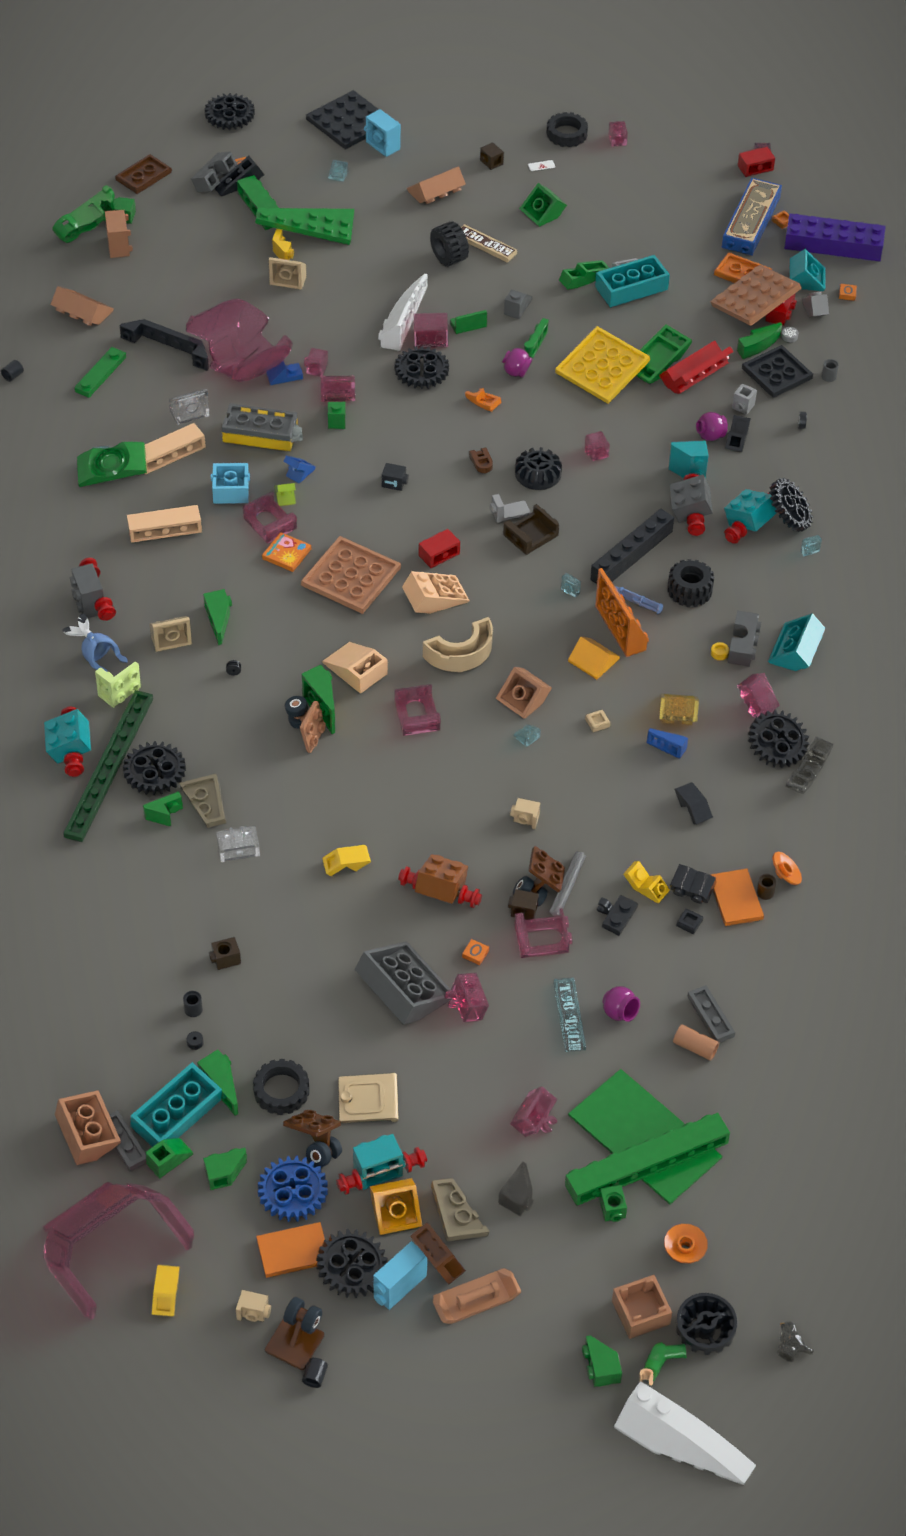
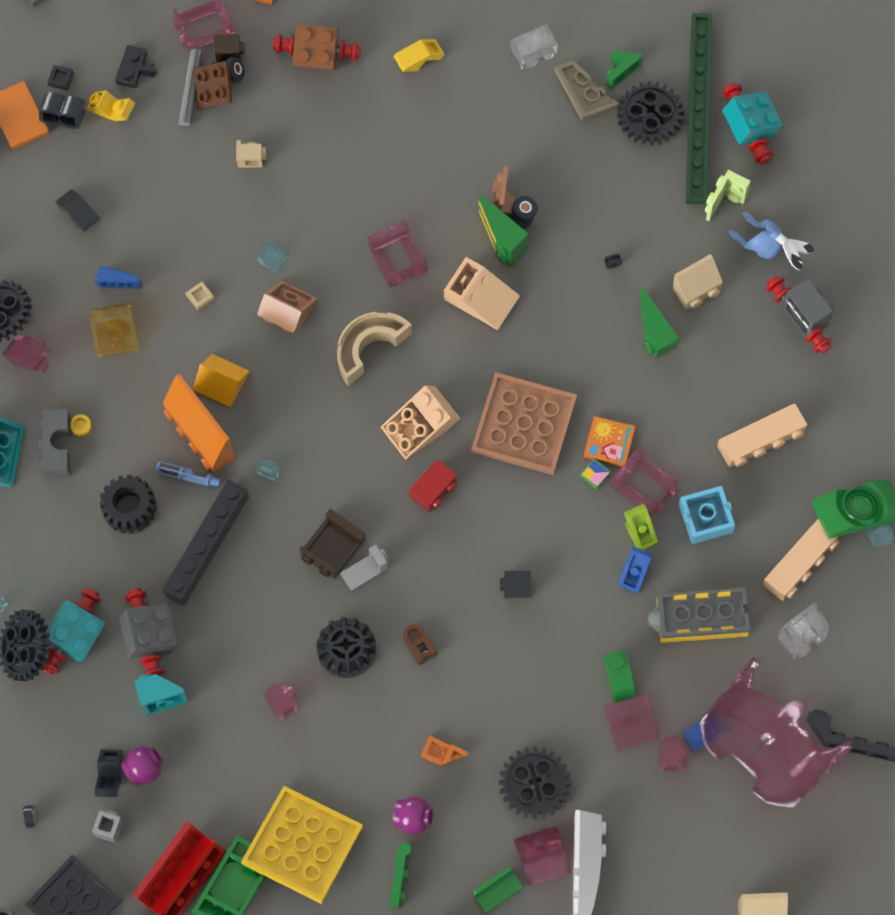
camera: 170 degrees right, 20 degrees up
(306, 533) = (595, 474): none -> tile

